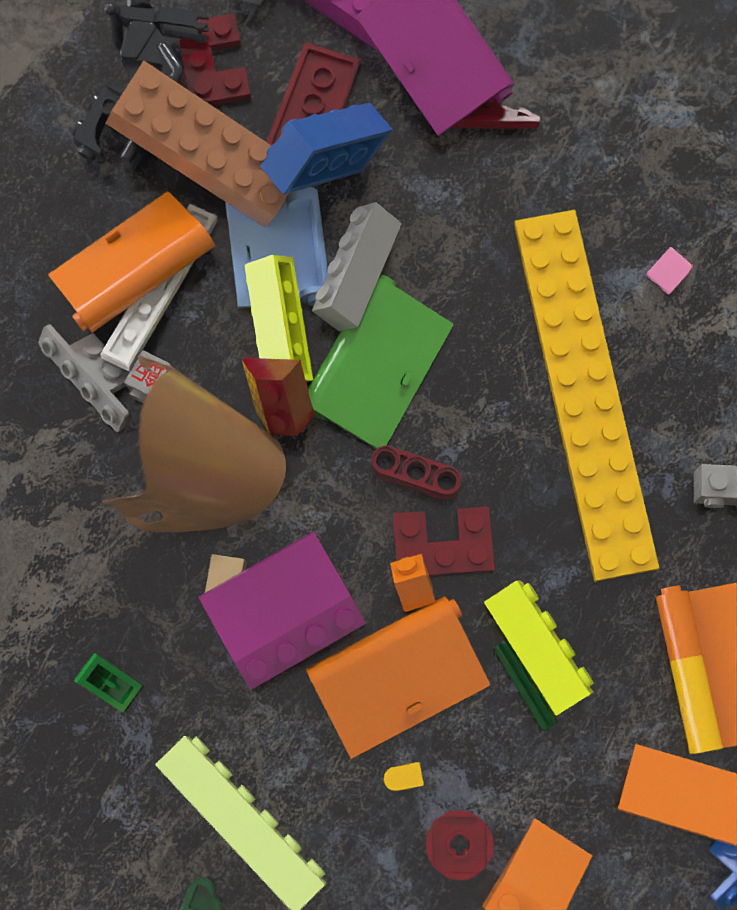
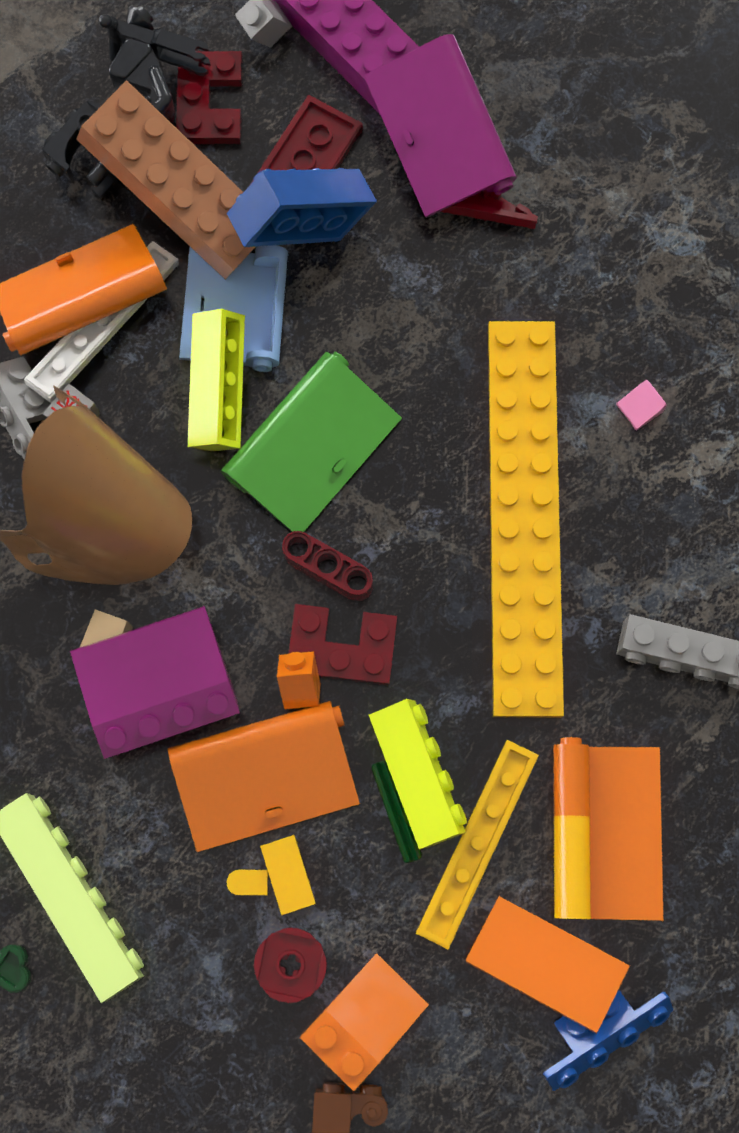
camera: 10 degrees right, 0 degrees up
(279, 394) = (200, 456): dark red slope -> none
(356, 266) = (309, 338): light grey brick -> none
(439, 763) = (288, 875): none -> yellow tile
(605, 702) = (477, 844): none -> yellow tile

